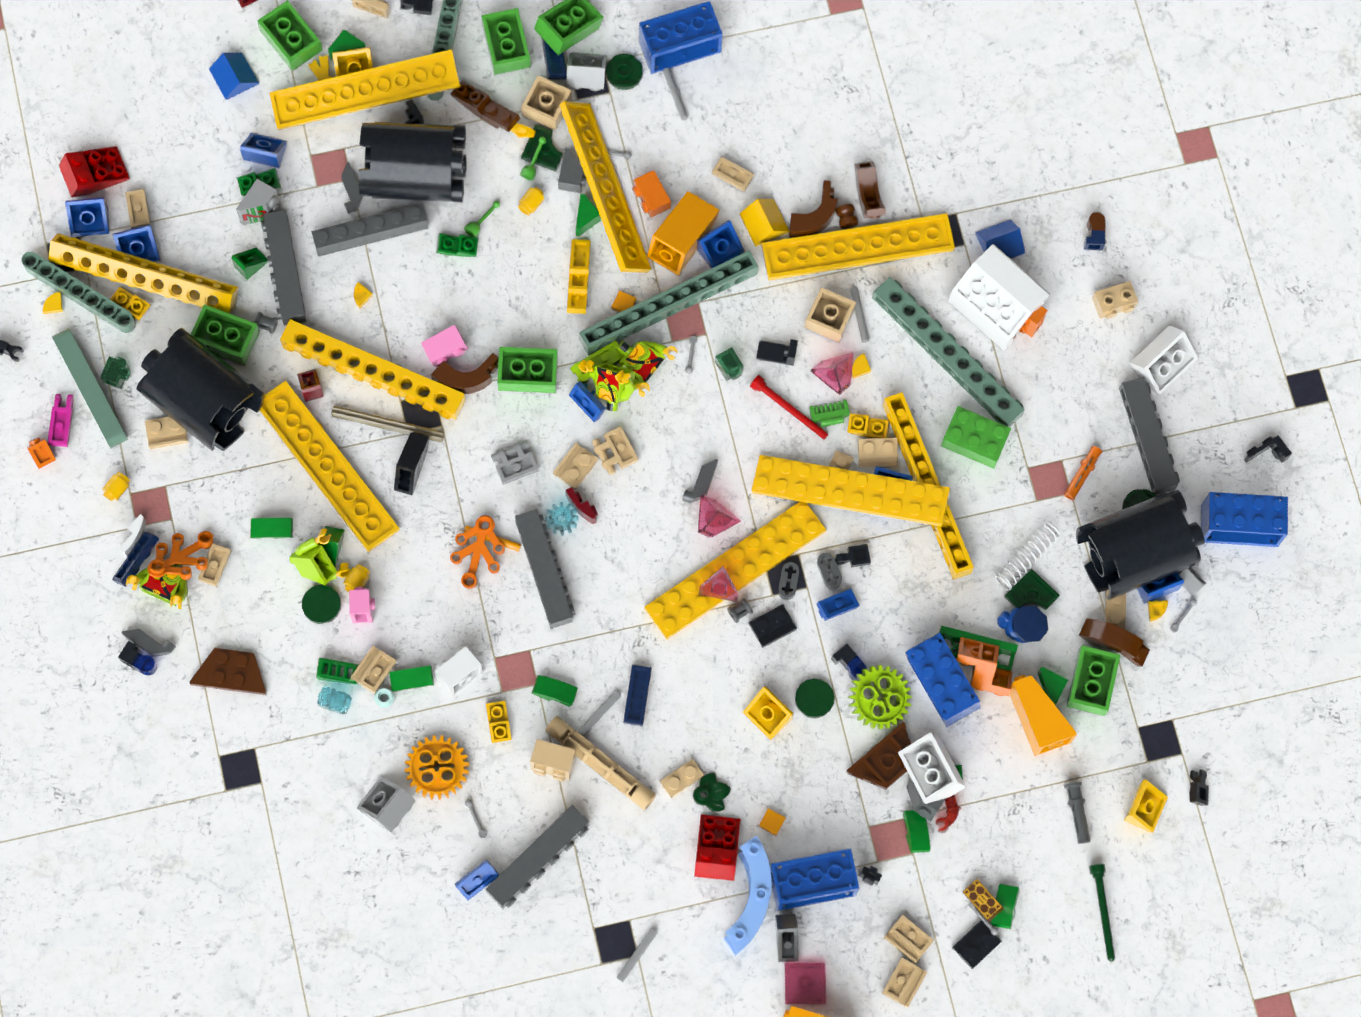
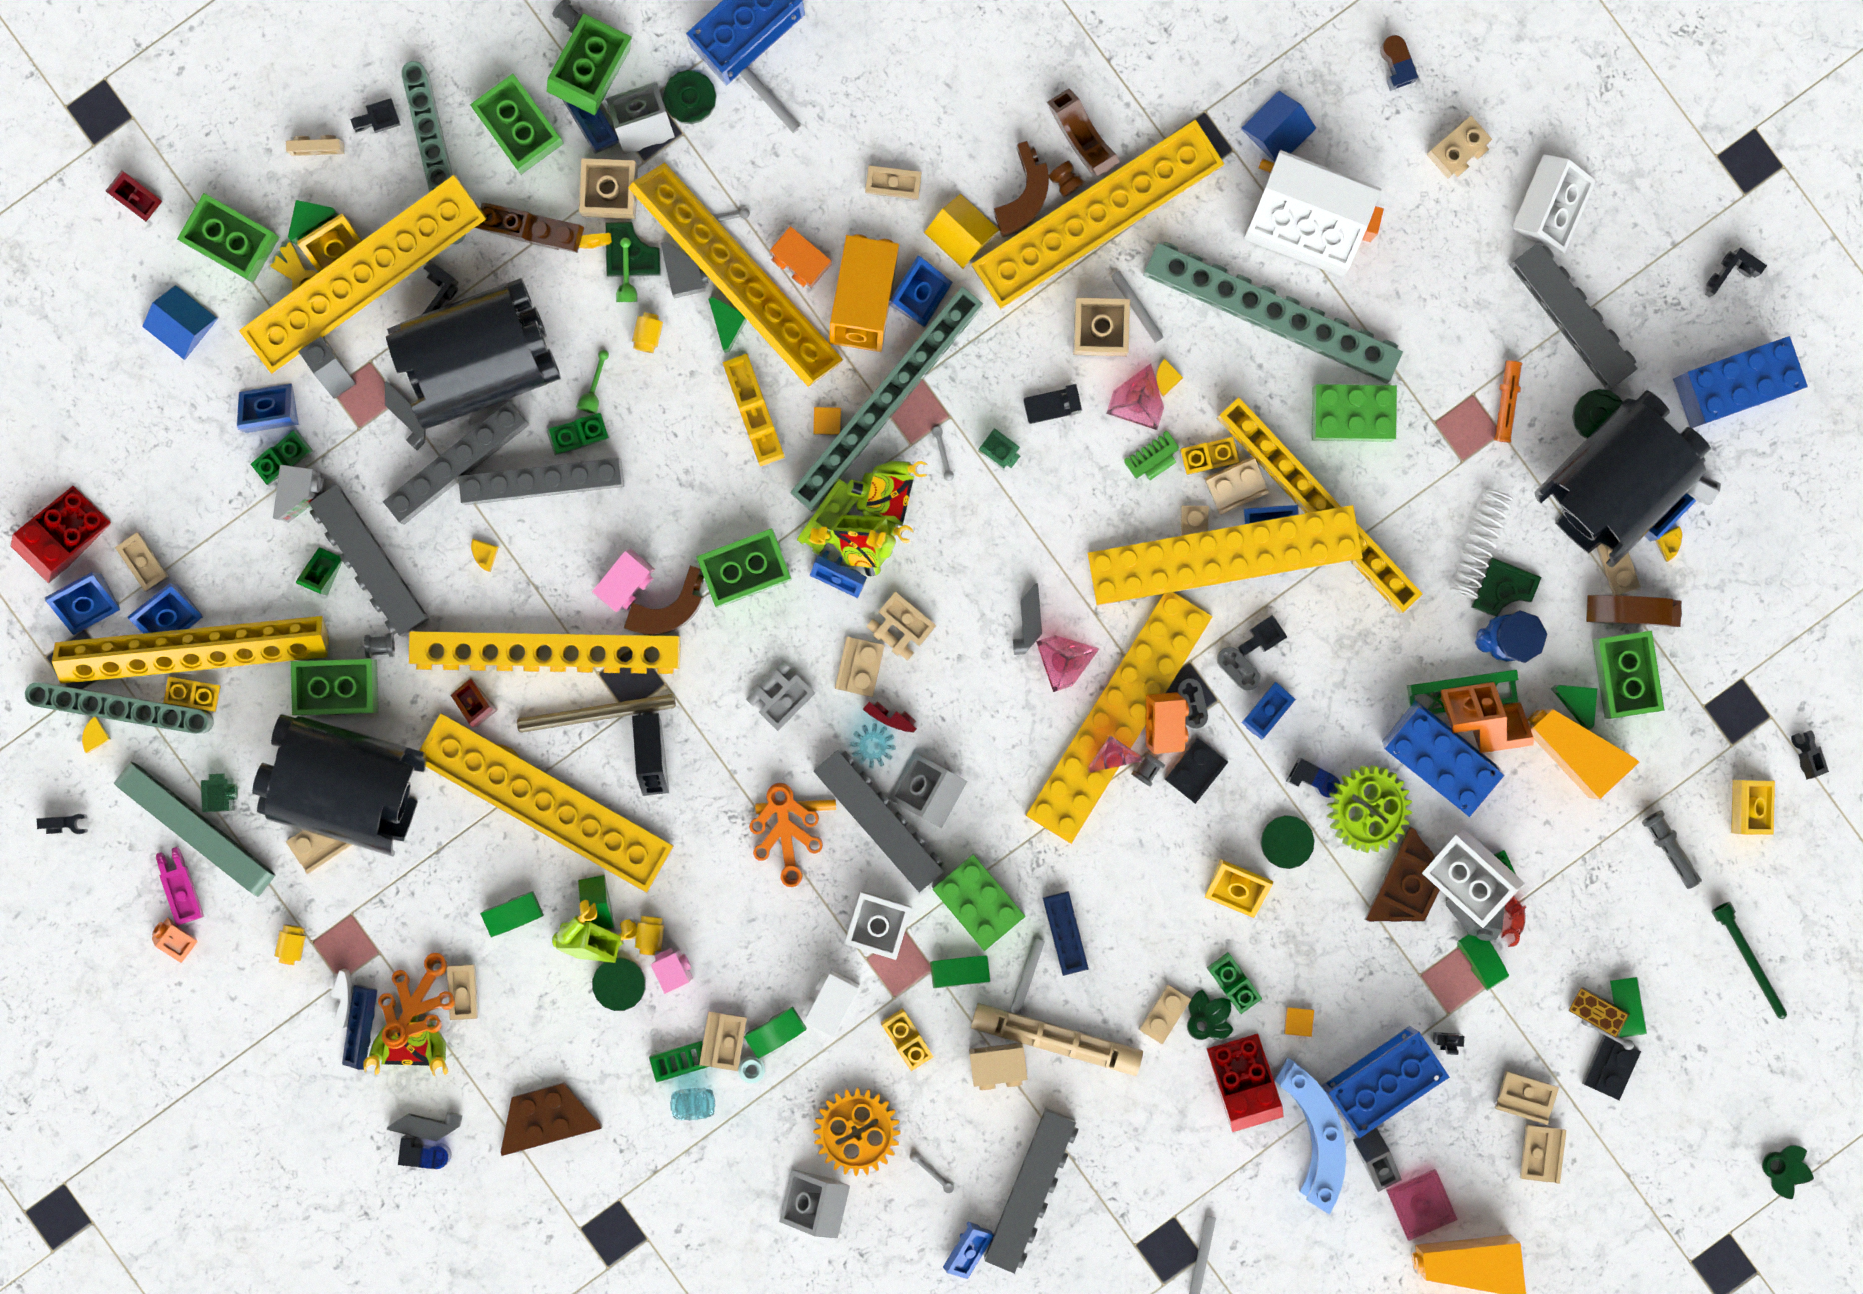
camera: 20 degrees left, 15 degrees up
(315, 138) = (327, 367): none -> slope
(419, 263) = (541, 481): none -> dark grey brick
(513, 635) = (878, 925): none -> white brick
(586, 562) = (928, 790): none -> light grey slope
(587, 649) = (978, 902): none -> bright green brick
(738, 777) = (1234, 983): none -> green slope
(759, 384) = (1048, 458): red piece -> none
(765, 582) = (1166, 723): none -> orange brick
(1174, 628) = (1701, 557): light grey hinge -> none

